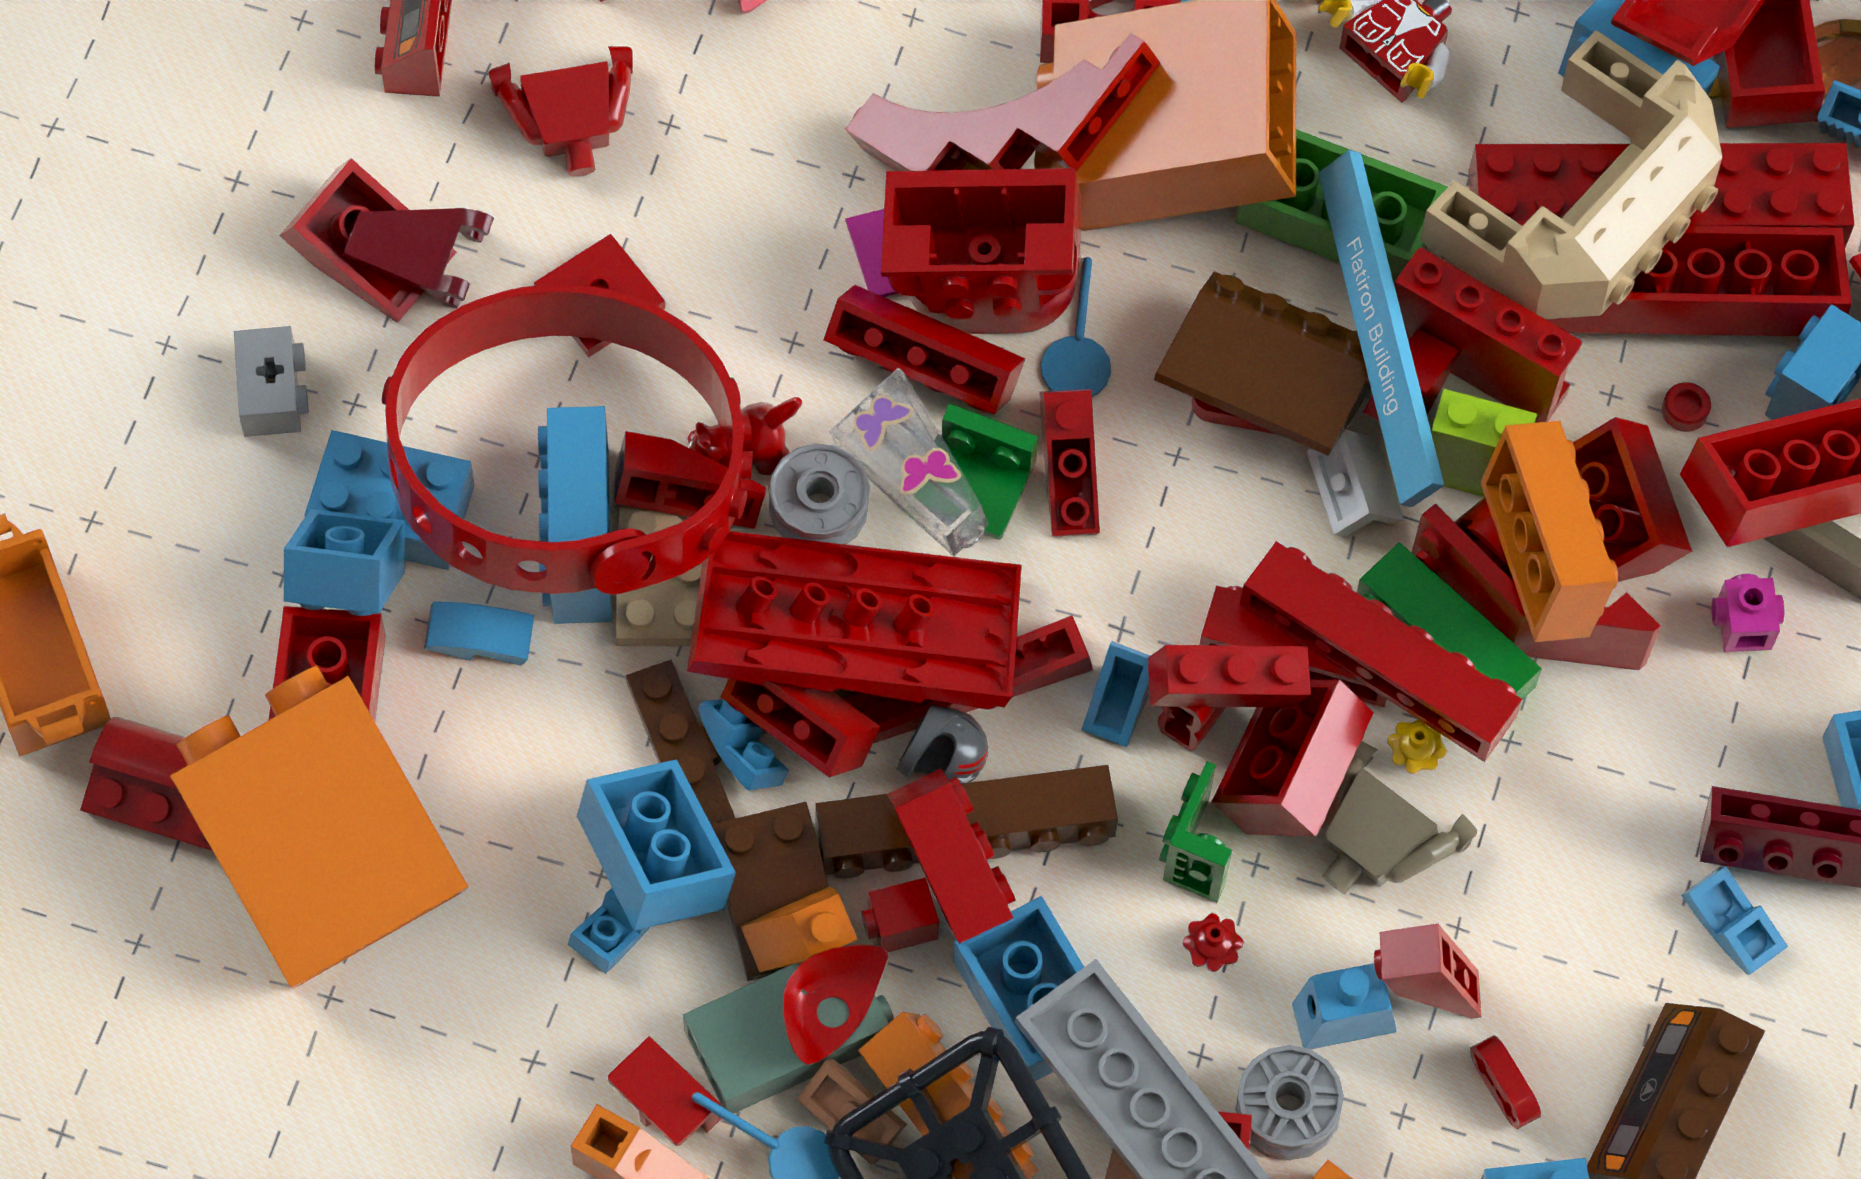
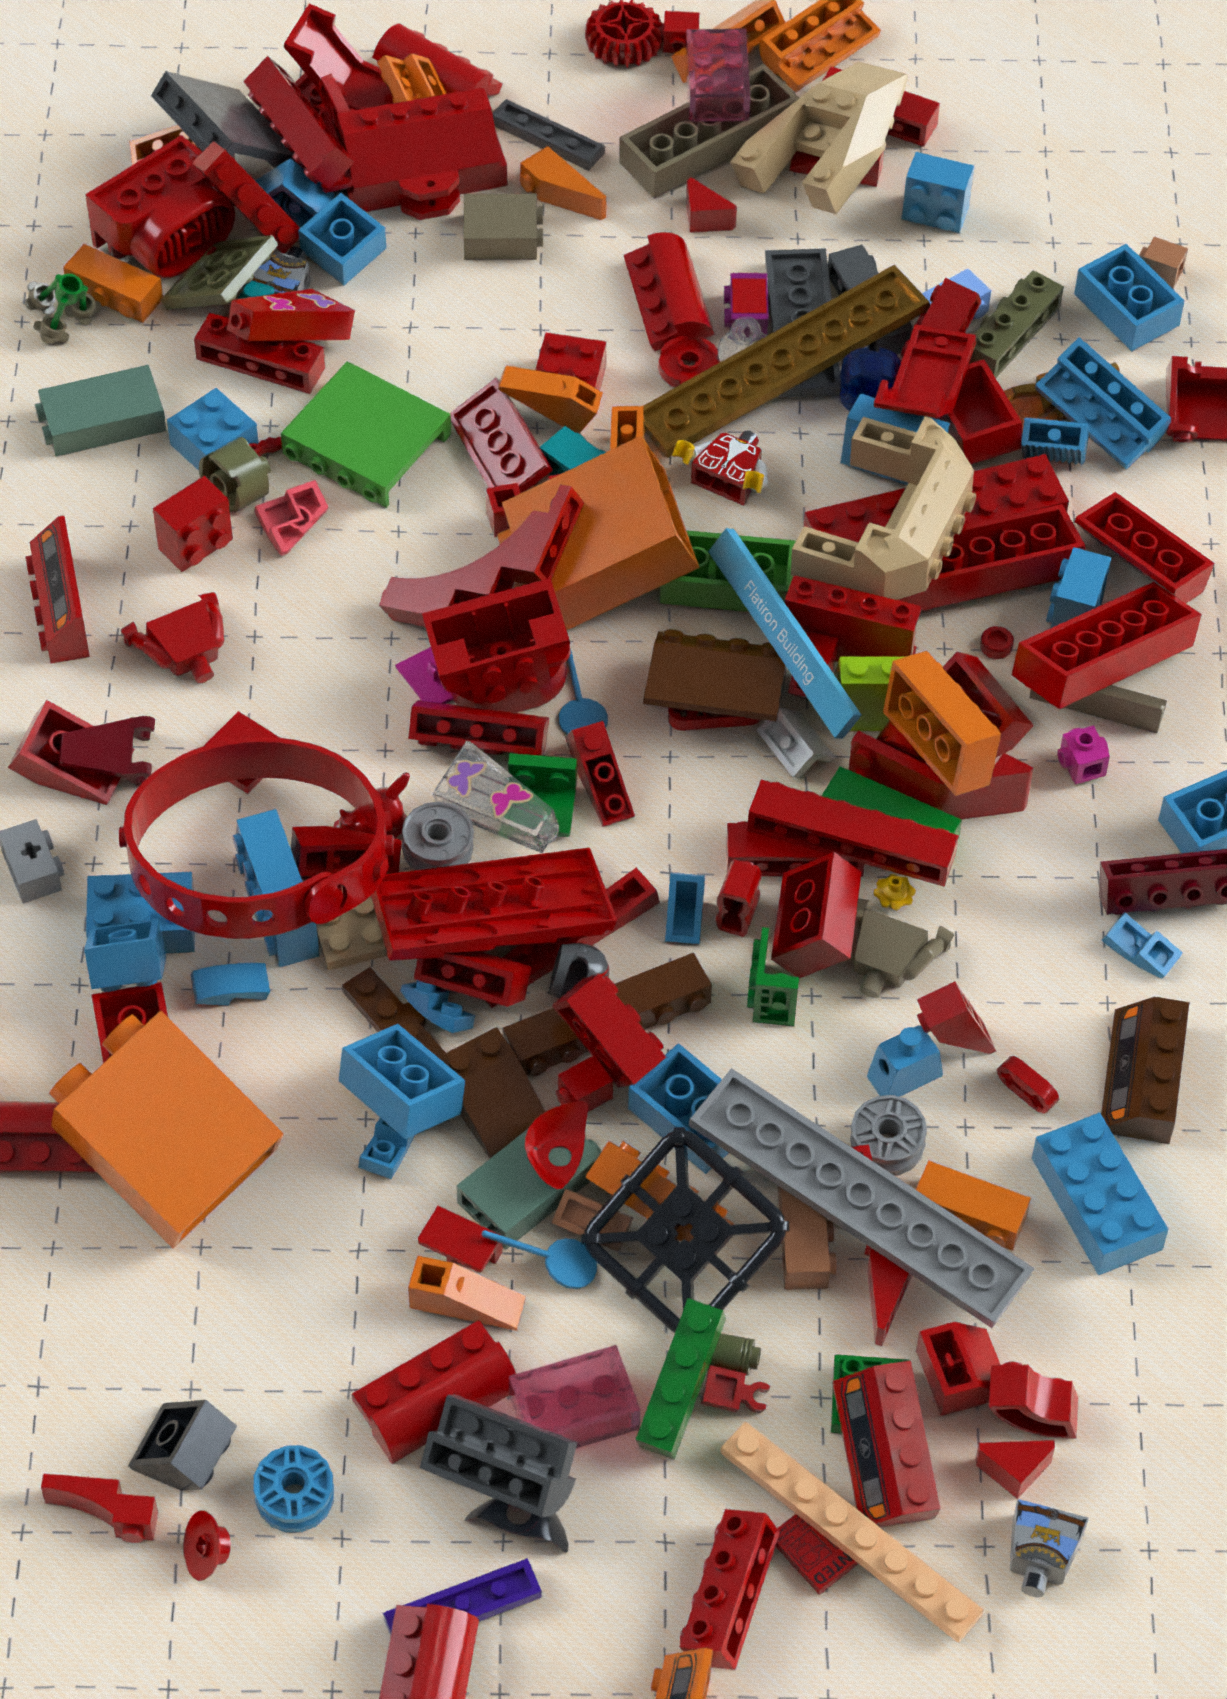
camera: 15 degrees left, 10 degrees down
(799, 930) = (518, 1111): orange slope -> none
(1213, 942) = (801, 1049): red plant -> none
(1229, 676) = (760, 866): red brick -> none

